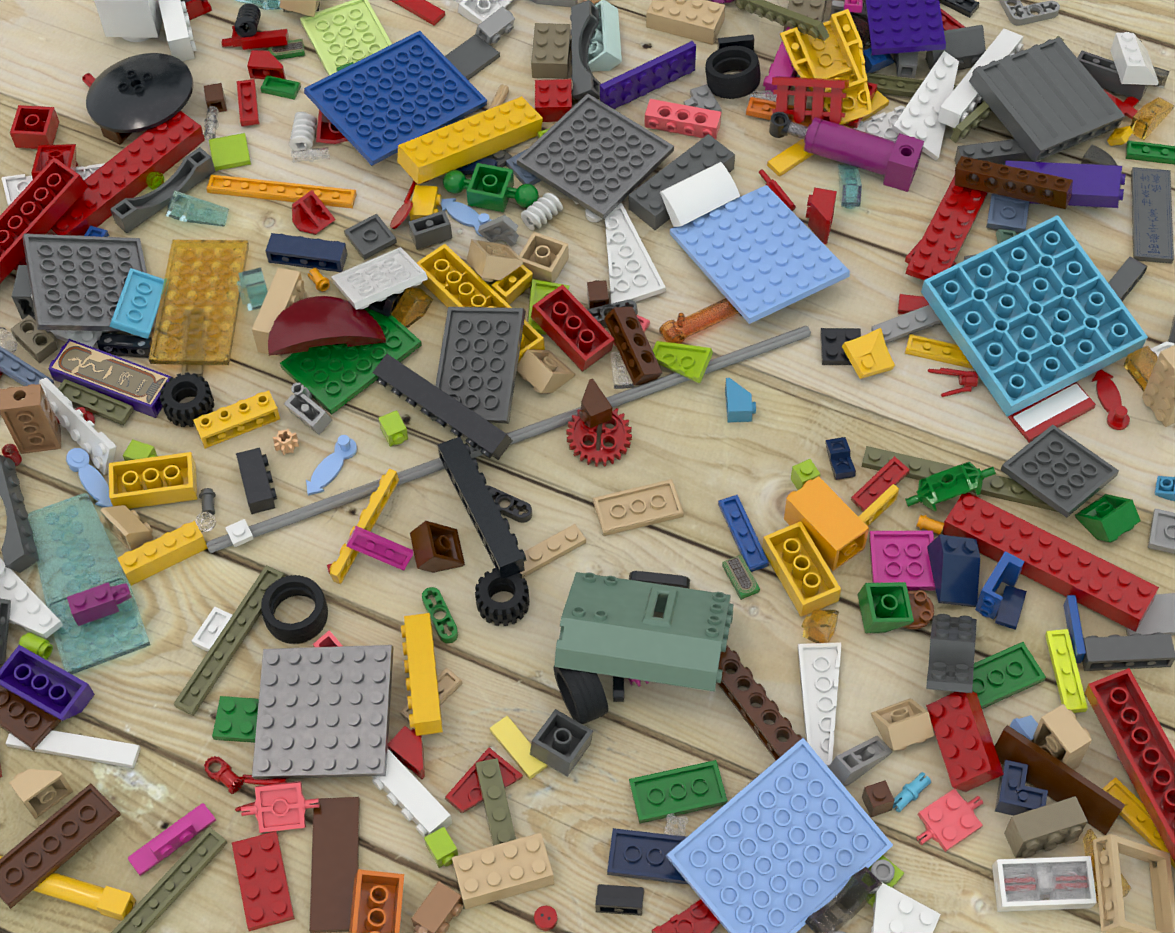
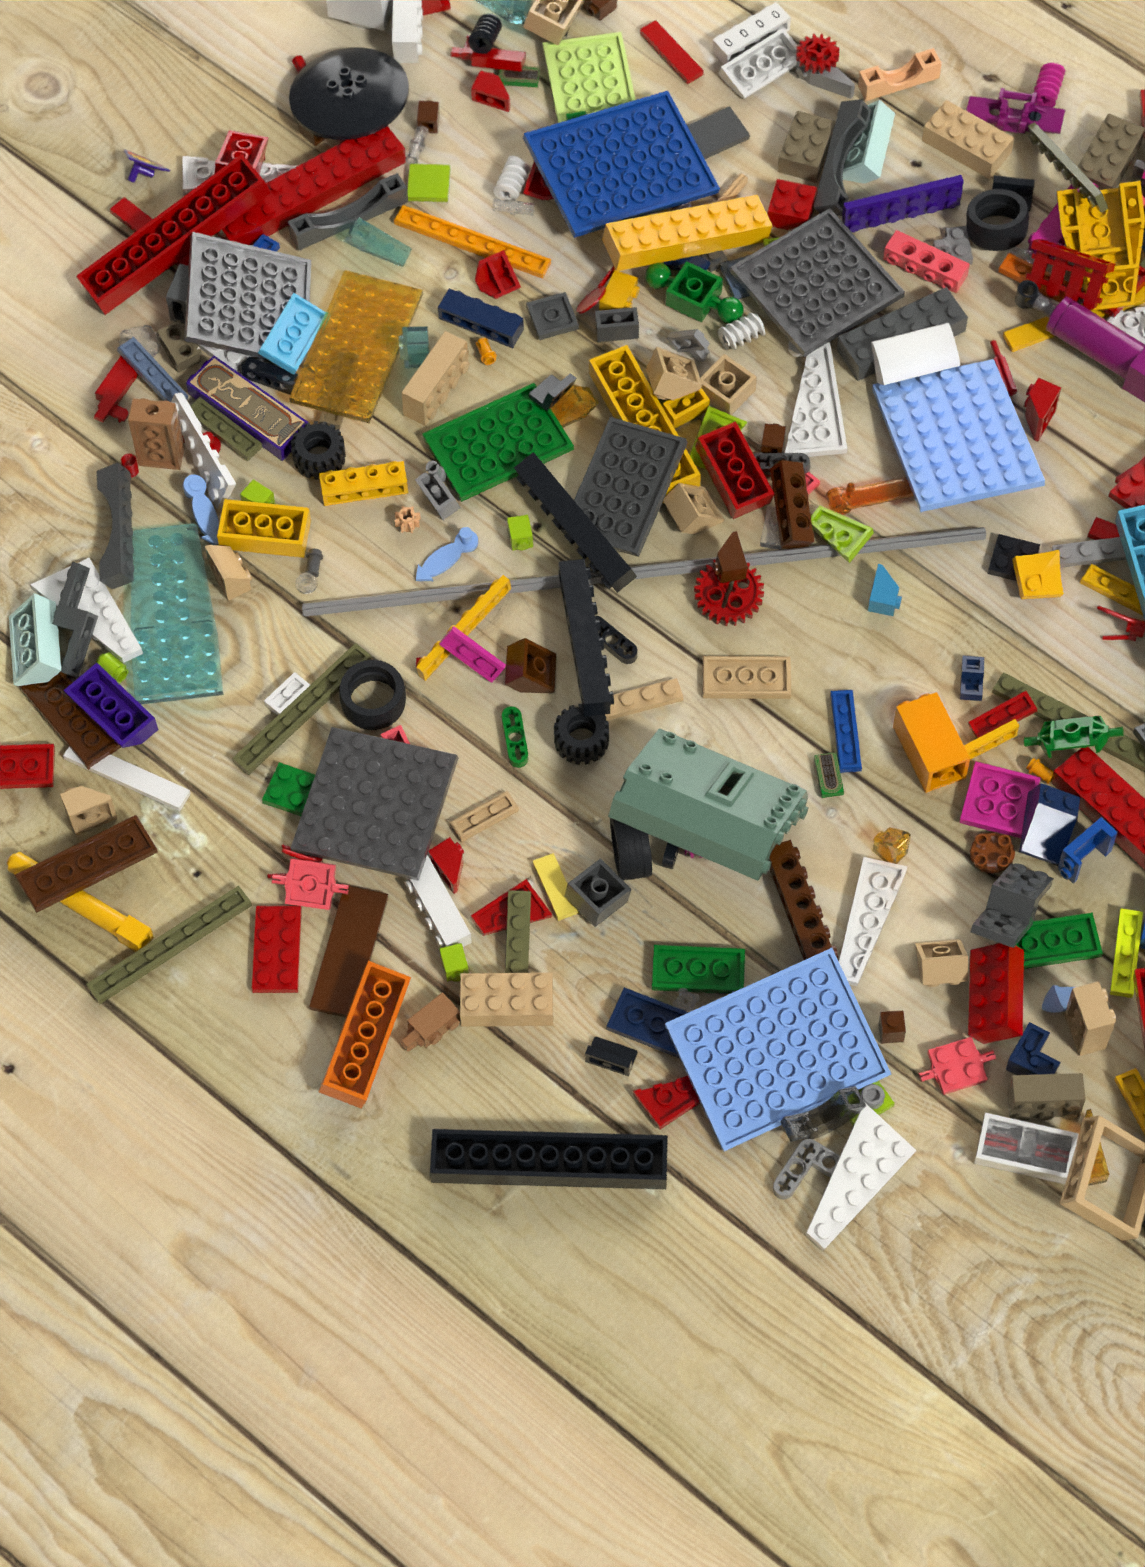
camera: 15 degrees right, 5 degrees up
(34, 126) = (229, 106): red brick -> none
(97, 602) = (181, 639): magenta hinge -> none
(155, 180) = (342, 197): clear neon green plate -> none
(162, 552) = (256, 604): yellow brick -> none
(171, 839) = (200, 887): dark pink bracket -> none
(224, 775) = (264, 840): red connector -> none
(239, 533) = (337, 603): white plate -> none
(247, 102) = (461, 130): red plate -> none
(256, 480) = (367, 553): black brick -> none
(280, 87) = (501, 119): green tile -> none
(321, 323) = (475, 402): dark red brick -> none
(379, 278) = (548, 366): white plate -> none
(422, 674) = (480, 792): yellow brick -> none
(464, 214) = (659, 313): light blue brick -> none
(495, 26) = (754, 102): light grey brick -> none
(545, 918) = (535, 1054): red tile -> none
(660, 578) = (745, 757): black beam -> none
(801, 569) = (891, 782): yellow brick -> none
(803, 472) = (927, 683): lime brick -> none
(849, 186) = (1083, 382): clear light blue slope -> none
(859, 760) = (884, 986): light grey slope -> none
(884, 606) = (963, 842): green slope -> none
(911, 791) = (927, 1029): medium azure pin -> none
(1010, 607) = (1093, 875): dark blue slope -> none
(1060, 780) = (1075, 1054): reddish brown tile -> none

